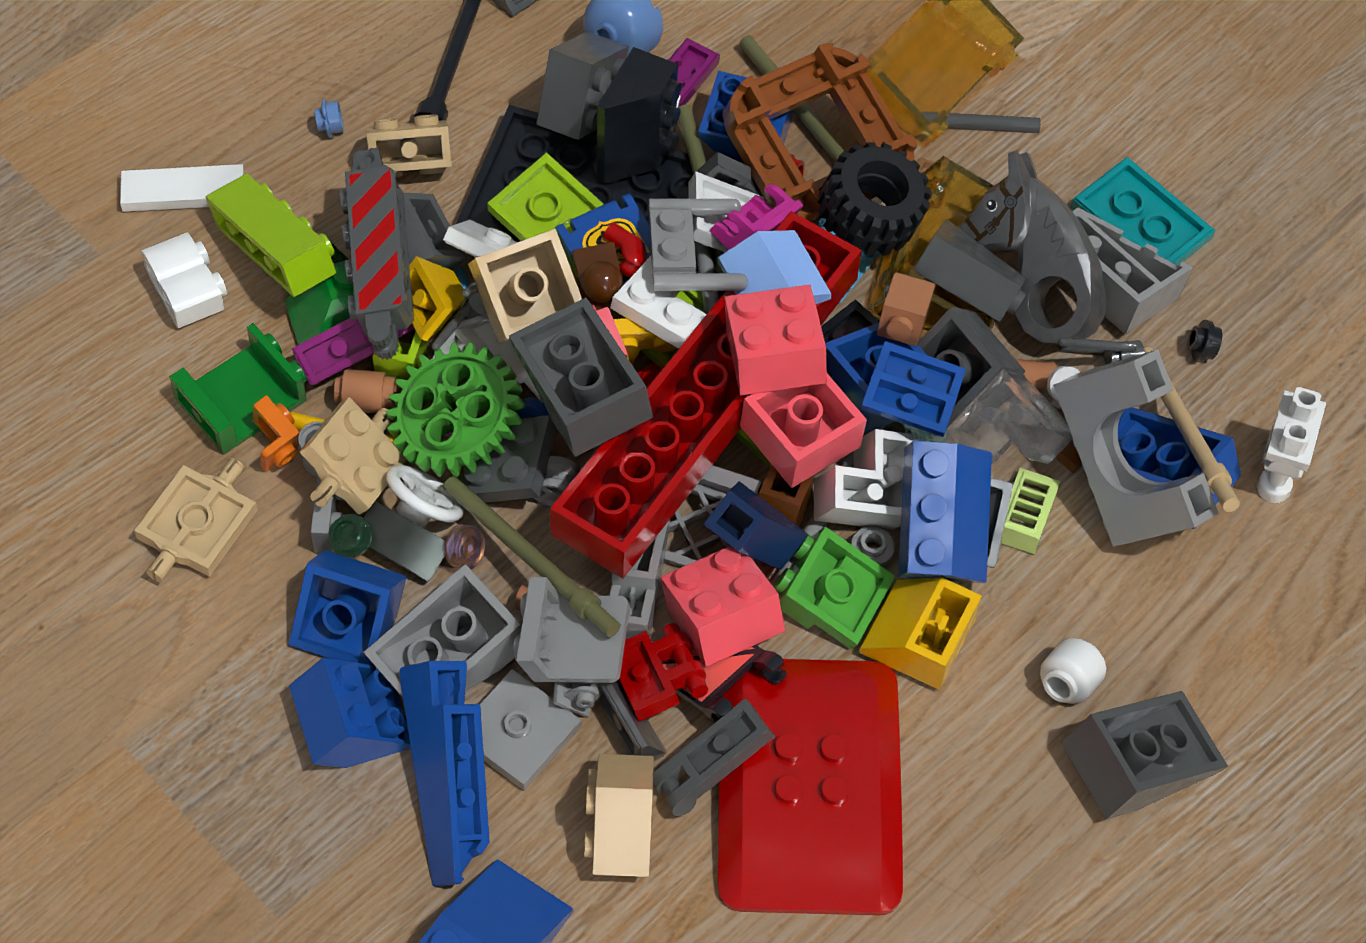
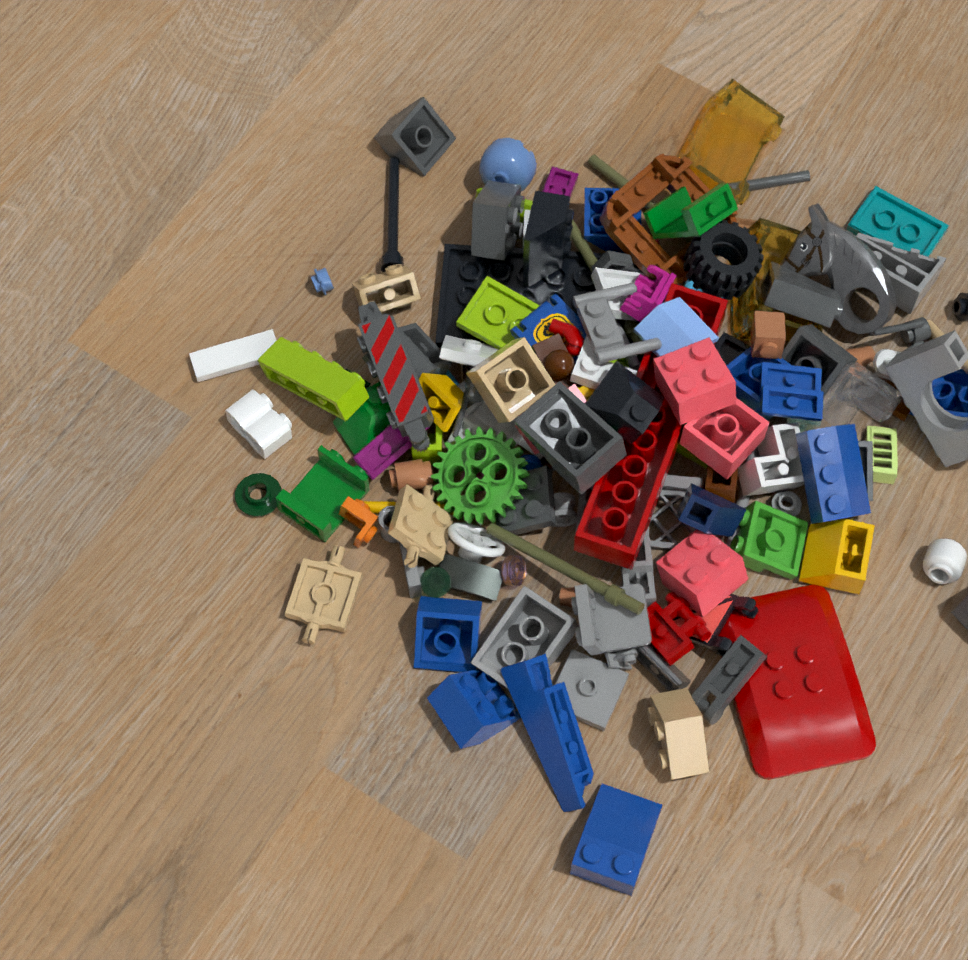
camera: 10 degrees left, 5 degrees up
(150, 387) = (260, 506): none -> dark green piece
(671, 348) = (625, 402): none -> black slope
(842, 126) = (681, 217): none -> green panel

